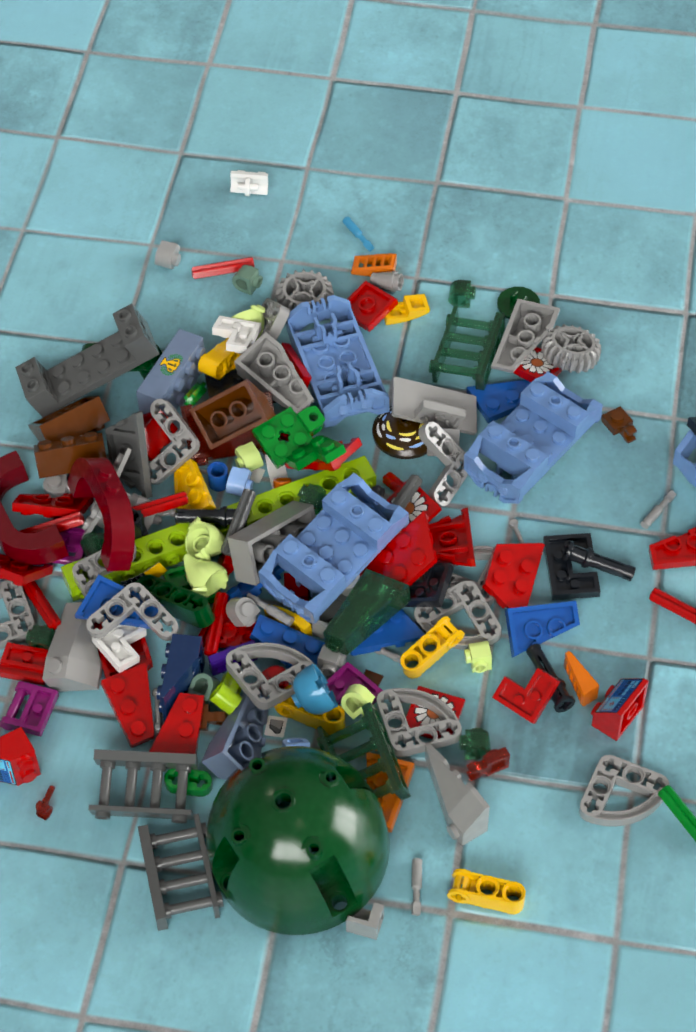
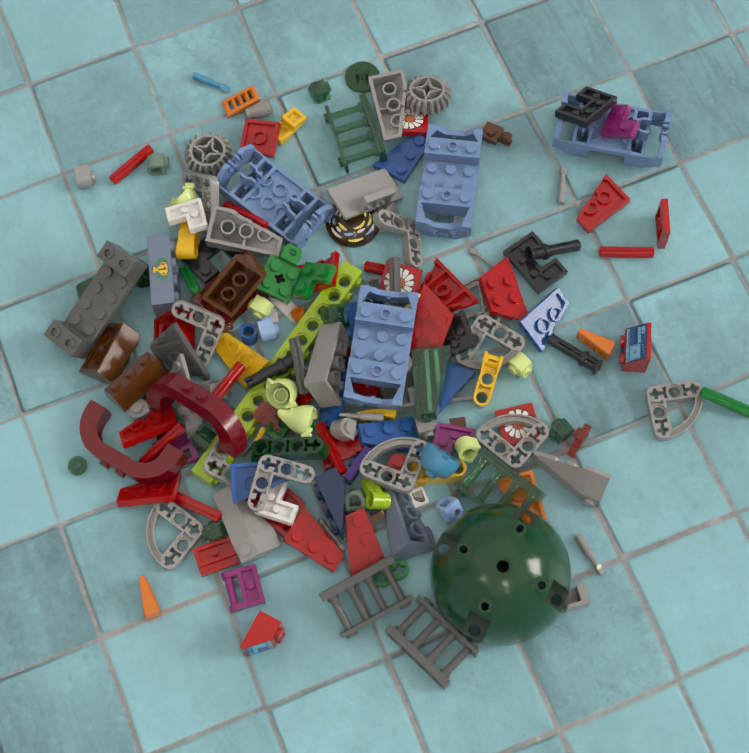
camera: 30 degrees left, 15 degrees up
(43, 809) = (307, 655): clear red hand -> none
(173, 556) = (266, 414): none -> clear red plate
(249, 182) = (102, 83): white hips -> none
(475, 883) = (625, 536): yellow piece -> none
(527, 701) = (573, 381): red plate -> none

